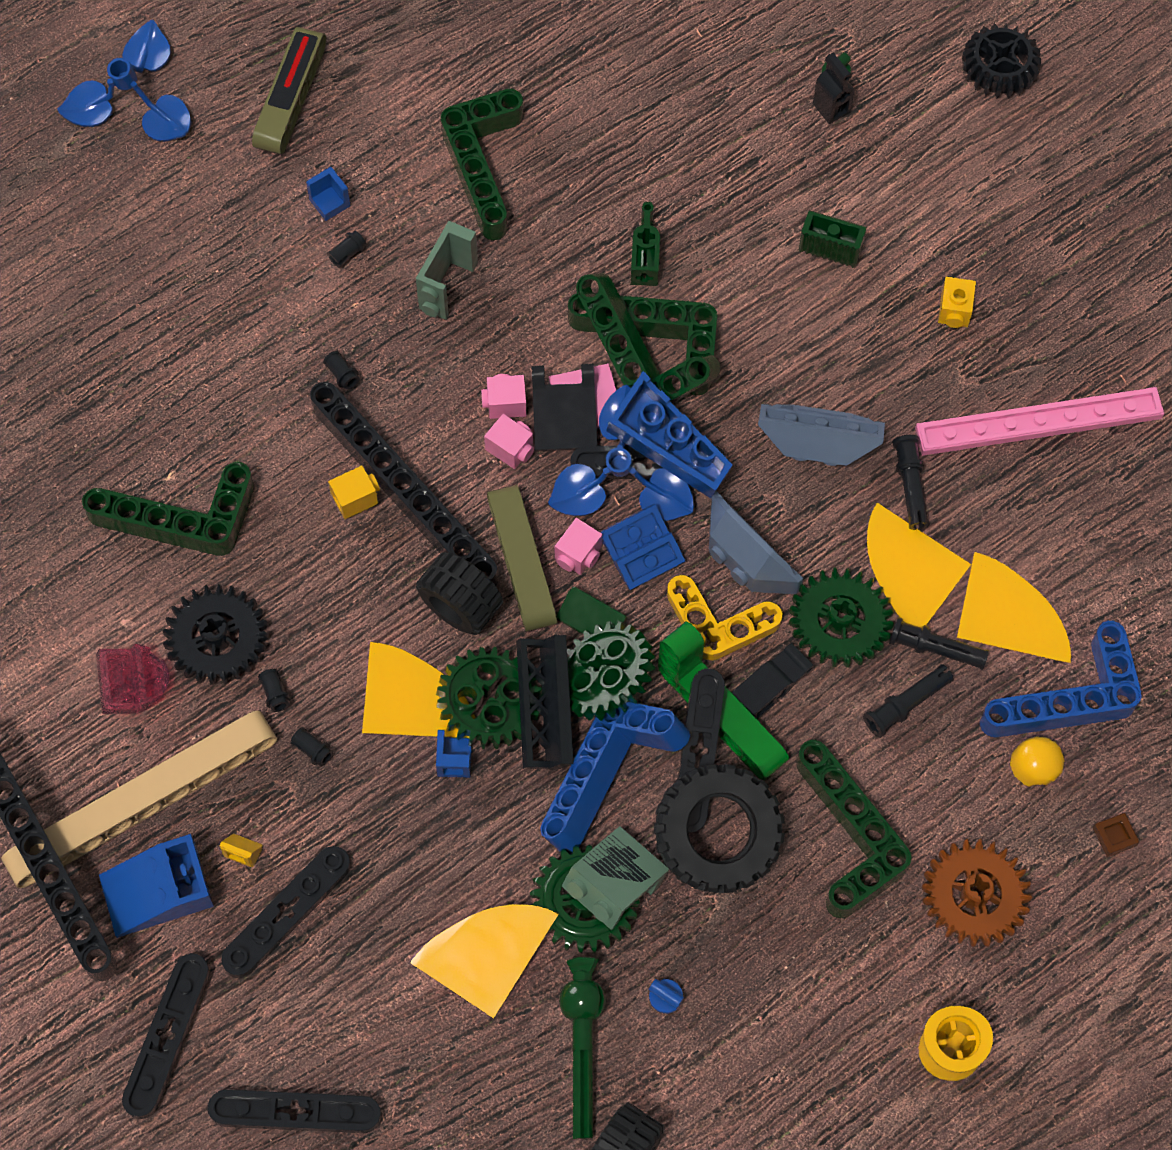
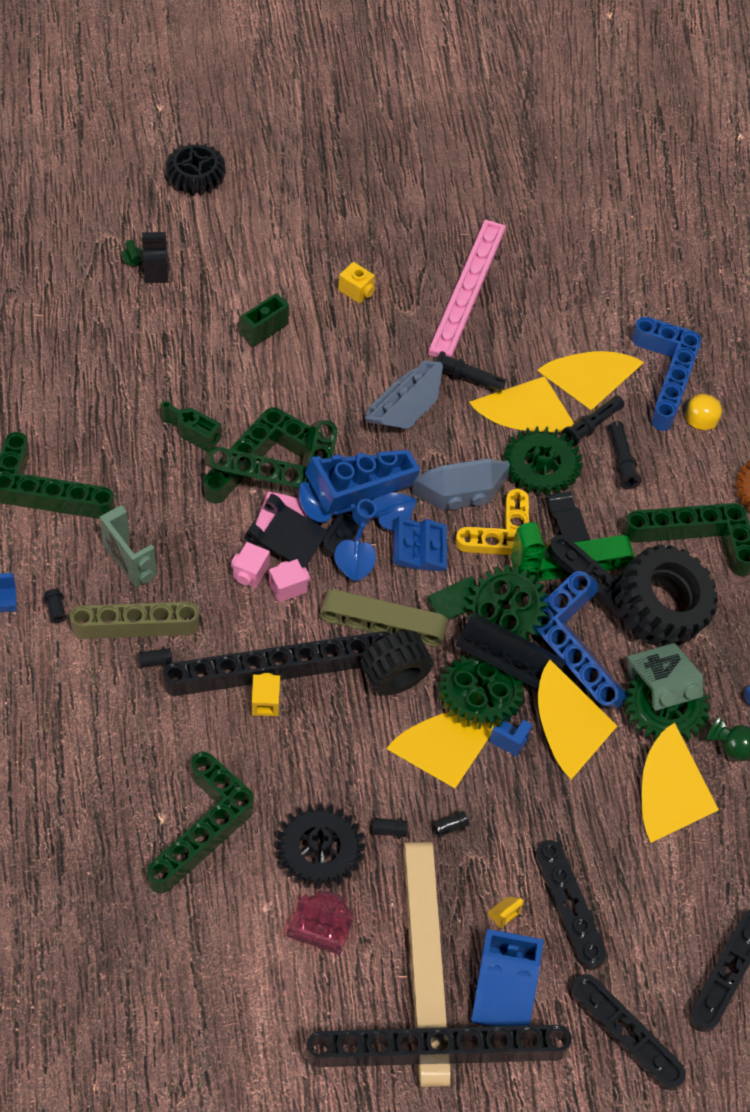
camera: 65 degrees left, 10 degrees down
(374, 340) = (123, 614): none -> olive beam
(506, 806) = (570, 720): none -> yellow sticker
(578, 547) = (398, 580): bright pink brick -> none

